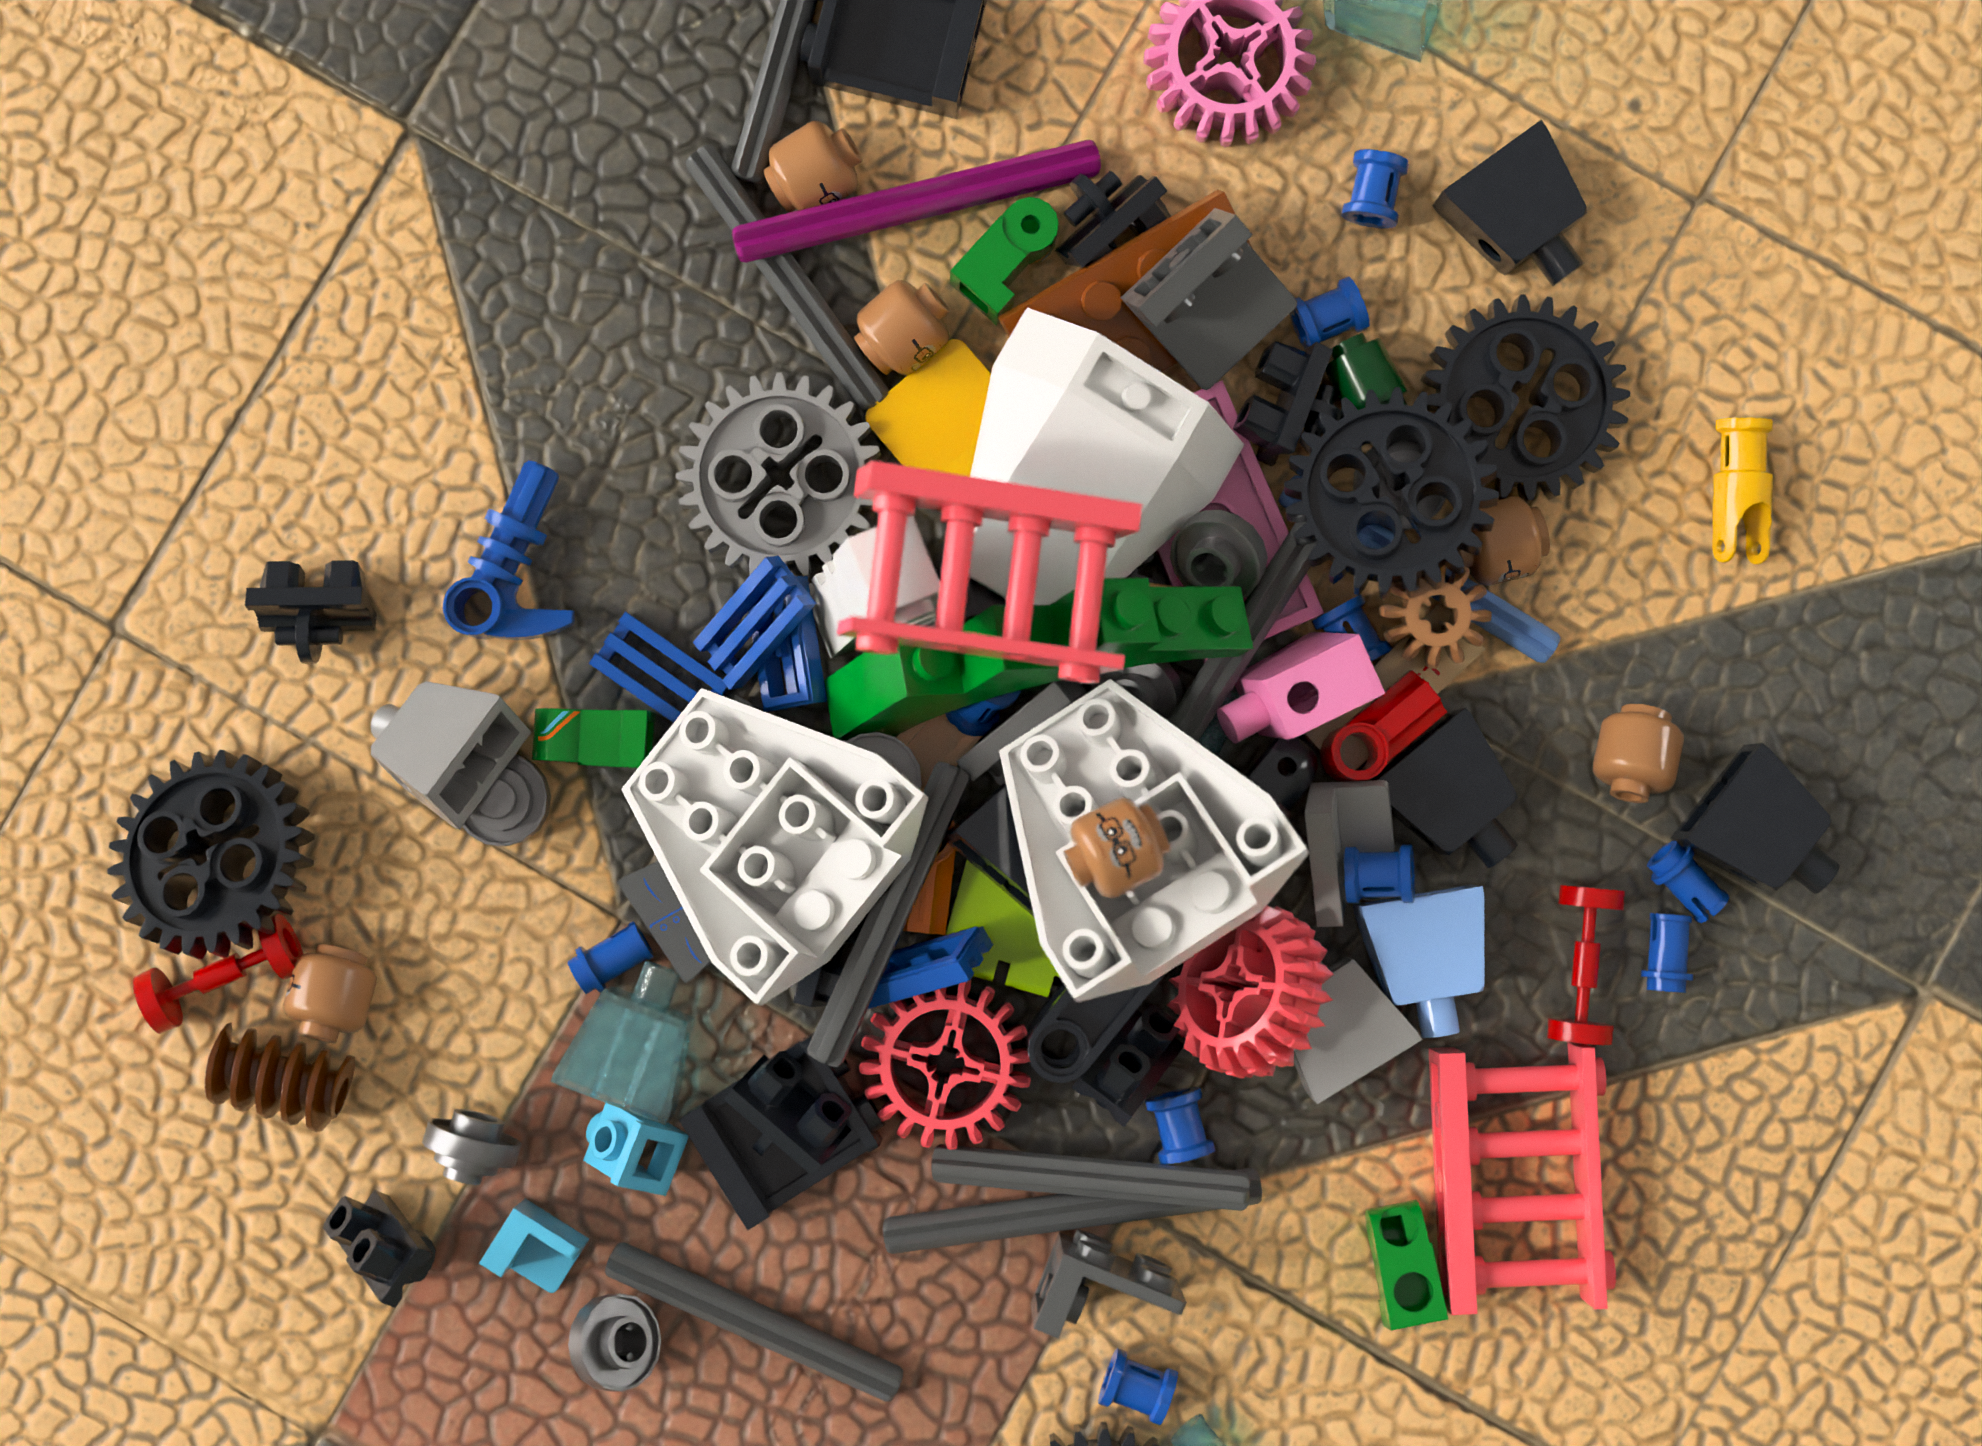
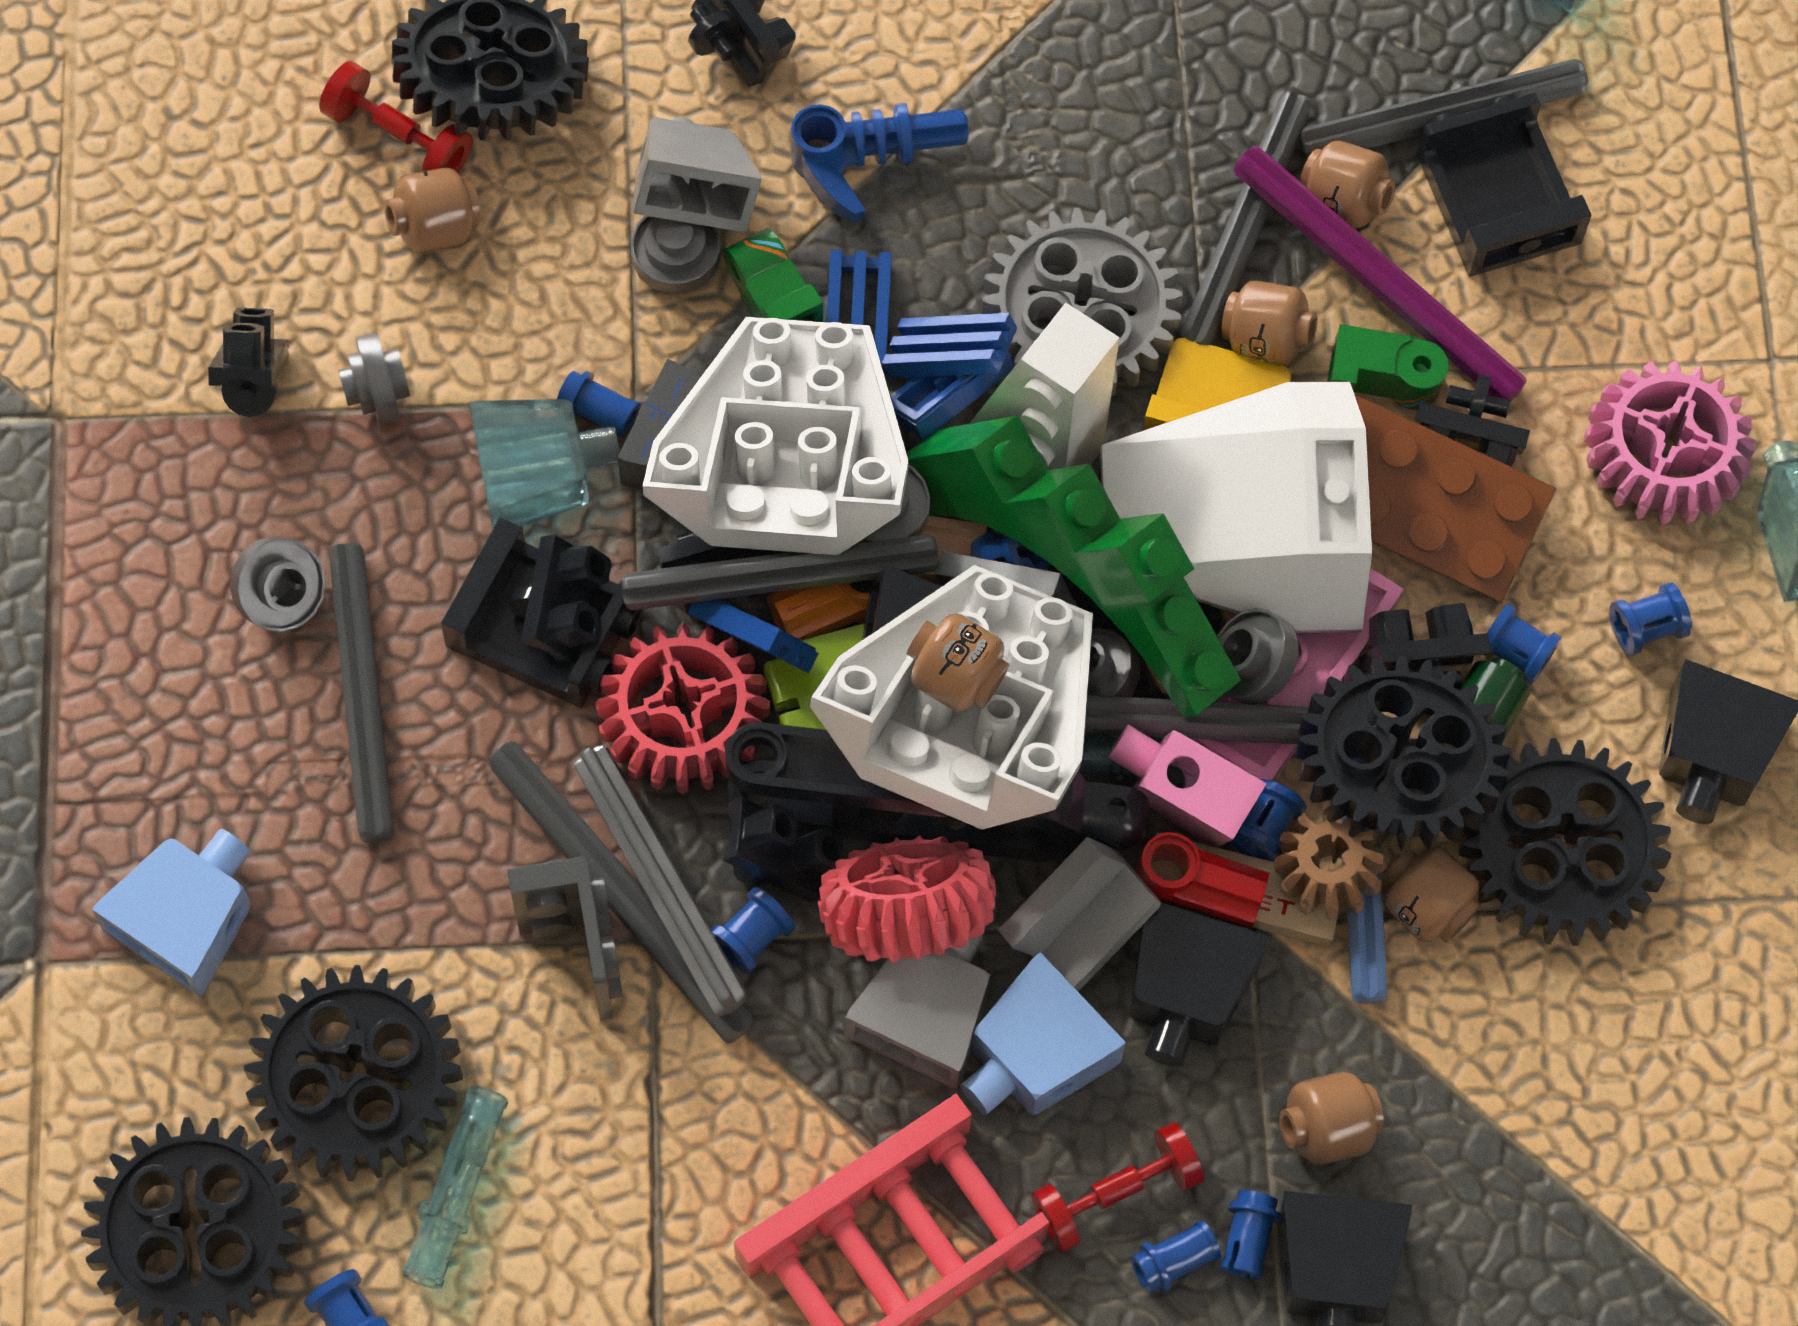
camera: 55 degrees right, 20 degrees down
(277, 1081) = (338, 209): reddish brown piece -> none
(535, 1247) = (317, 480): medium azure panel -> none
(618, 1142) = (449, 493): medium azure brick -> none
(1029, 516) = (1152, 367): coral fence -> none
(1138, 1387) = (500, 1030): blue bush -> none
(1210, 298) = (1460, 525): dark grey bracket -> none
(1379, 874) = (1077, 947): blue bush -> none
(1404, 1266) = (746, 1191): green leg -> none
(1742, 489) = (1629, 1067): yellow piece -> none

